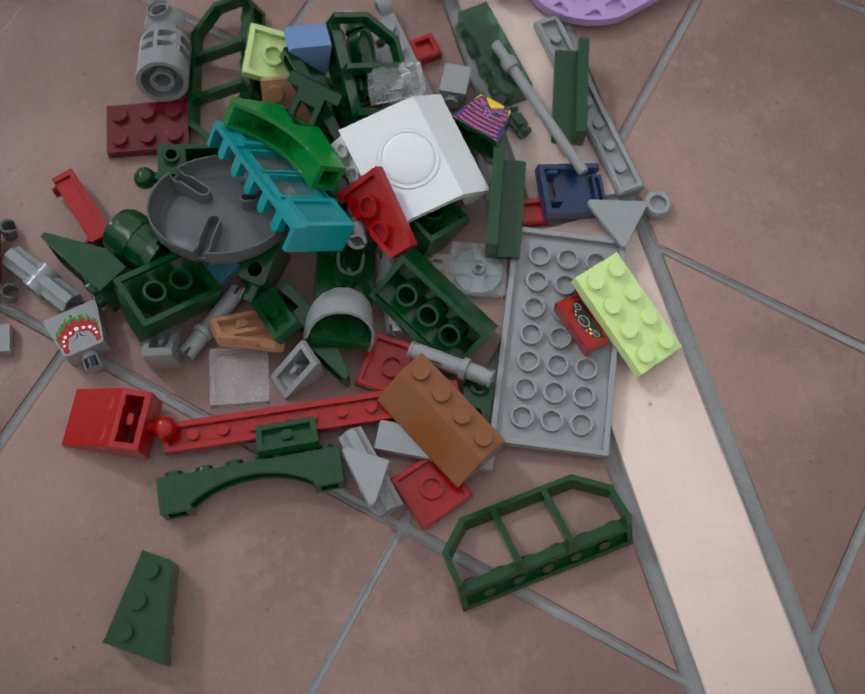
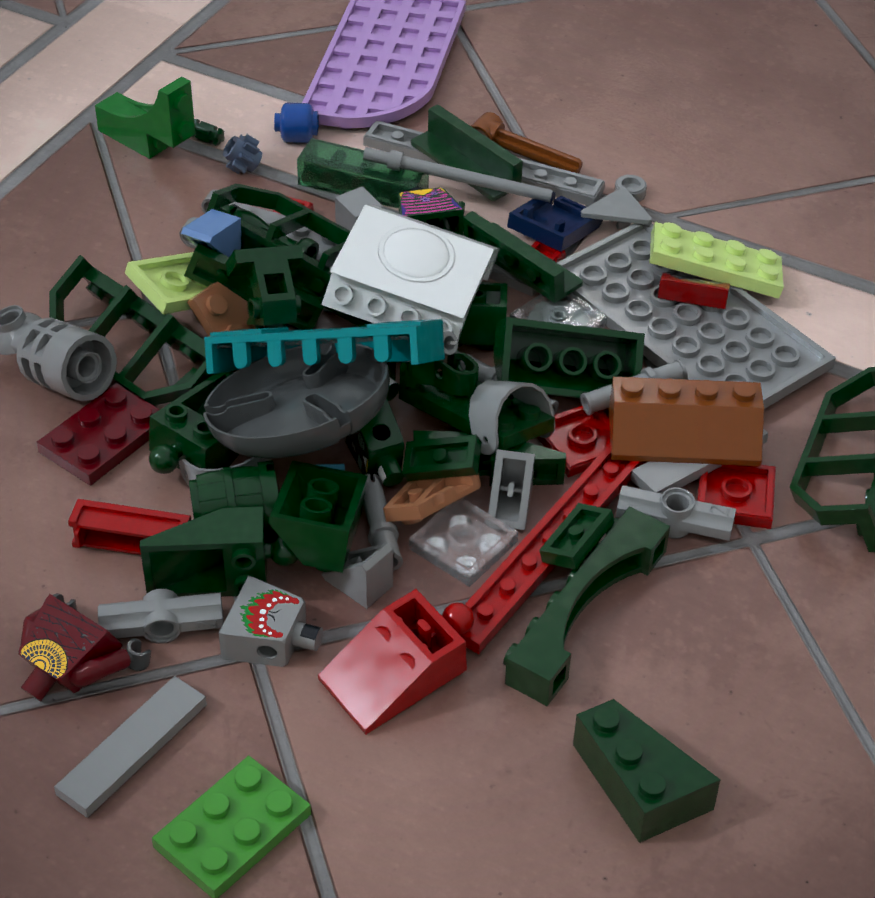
camera: 45 degrees left, 25 degrees down
(299, 144) = (295, 308): green arch -> none
(368, 473) = (688, 494): light grey slope -> none
(379, 210) = (434, 295): red wing -> none
(396, 82) = (331, 212): clear plate -> none
(615, 85) = (493, 128): none -> dark orange axle

